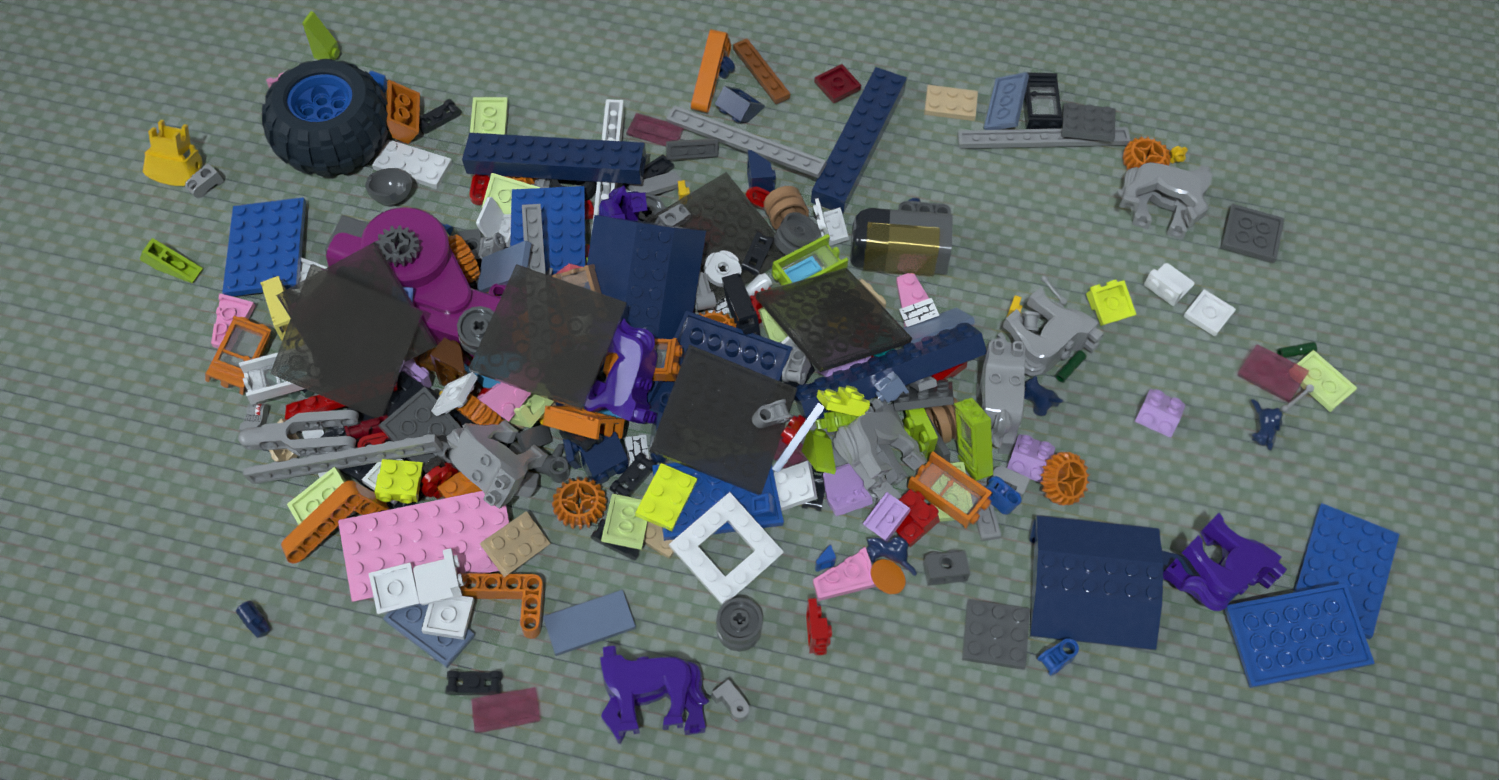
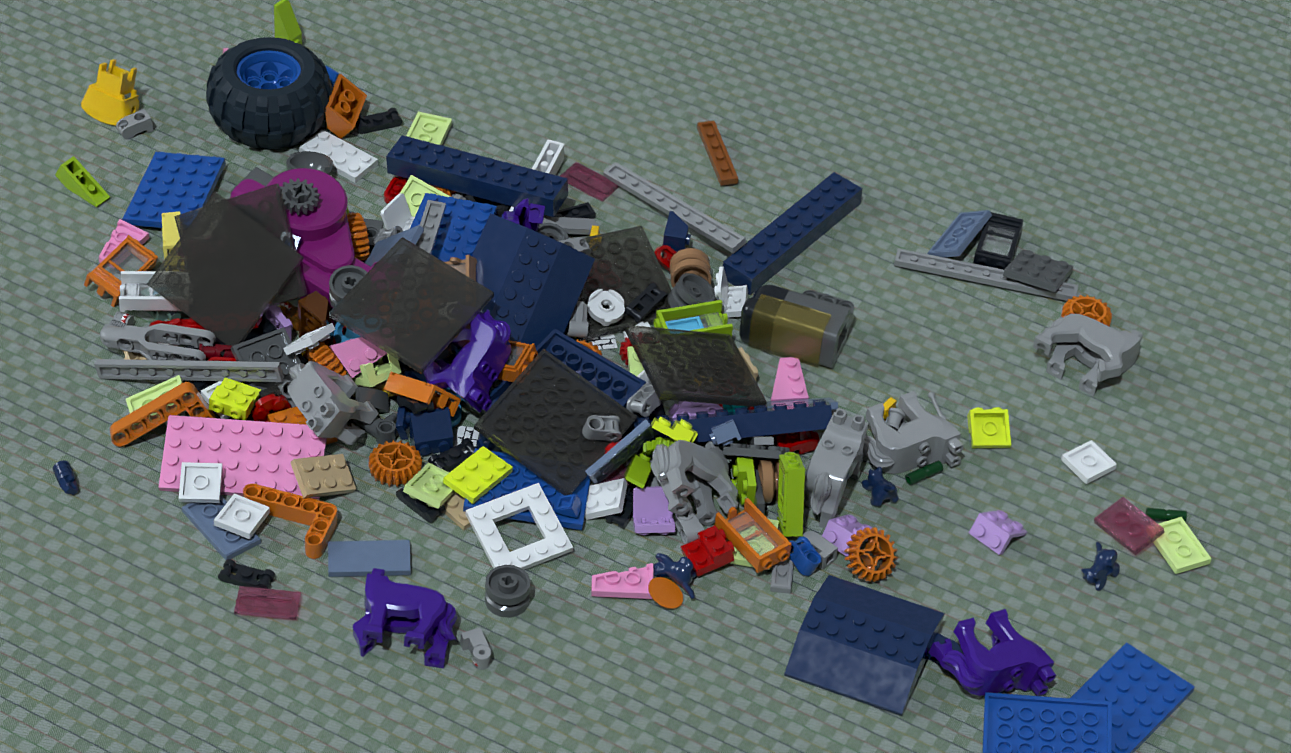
camera: 15 degrees right, 15 degrees down
(438, 579) = (244, 483): white bracket -> none
(692, 149) = (618, 202): dark grey tile -> none
(717, 47) = (675, 118): orange beam -> none
(726, 66) = (680, 141): dark blue wheel -> none
(738, 104) = (681, 176): slope -> none
(740, 304) = (610, 335): black door -> none
(817, 629) = (578, 610): red plate -> none
(826, 560) = (610, 563): blue slope -> none
(837, 83) = (791, 180): dark red plate -> none
(886, 516) = (682, 541): lavender plate -> none
(919, 312) = (788, 390): white sticker -> none
(937, 575) = (724, 599): dark grey brick -> none
(951, 102) = (903, 224): tan plate -> none
(996, 634) = (751, 664): dark grey plate -> none
(1056, 659) = (804, 693): blue piece -> none
(1168, 283) = (1057, 428): white bracket -> none
(1178, 154) = (1121, 316): yellow plate -> none
(1253, 233) = (1168, 406): dark grey plate -> none
(1309, 388) = (1159, 546): light grey hinge -> none

